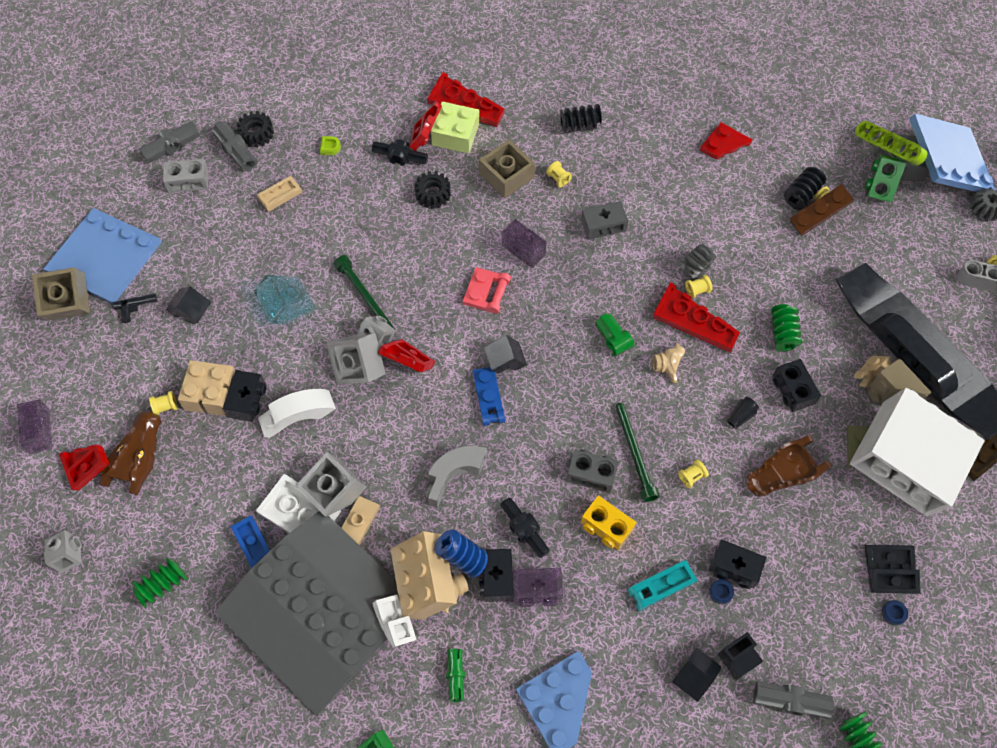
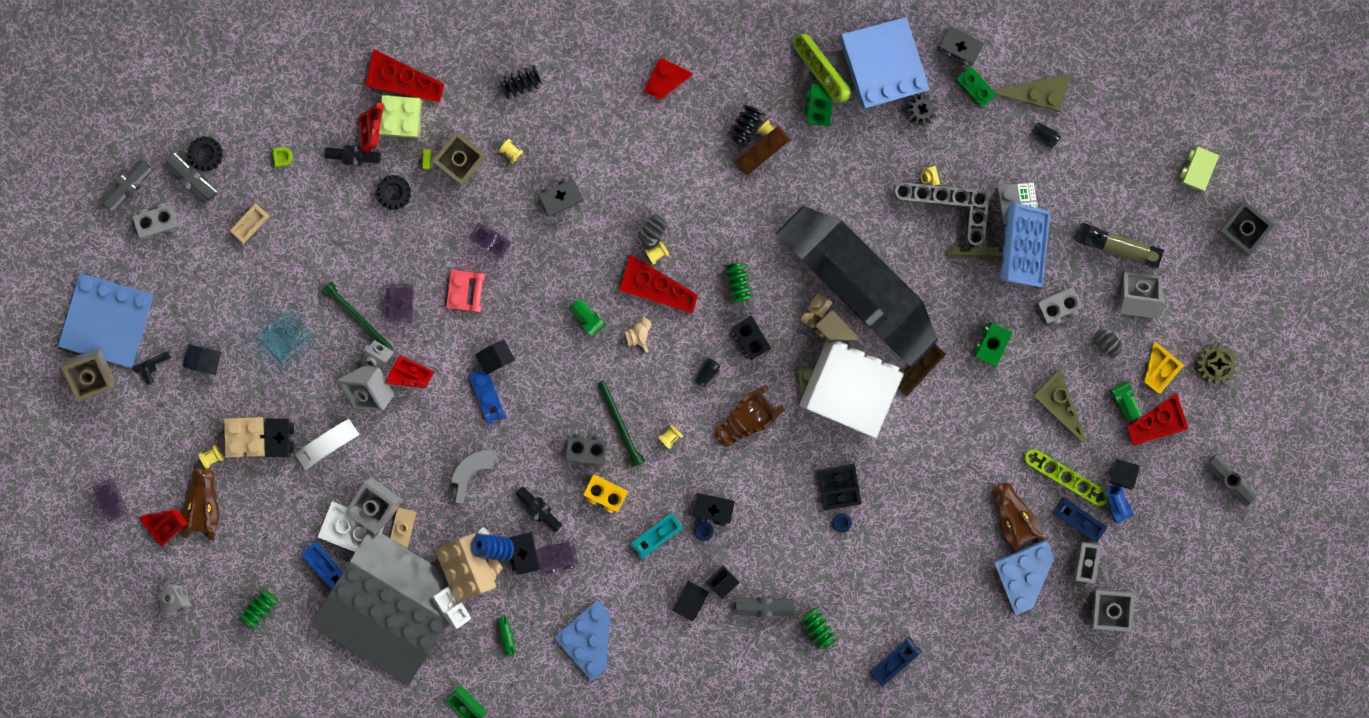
camera: 10 degrees left, 25 degrees up
(415, 287) = (406, 293): none -> clear purple brick
(473, 166) = (427, 159): none -> lime tile

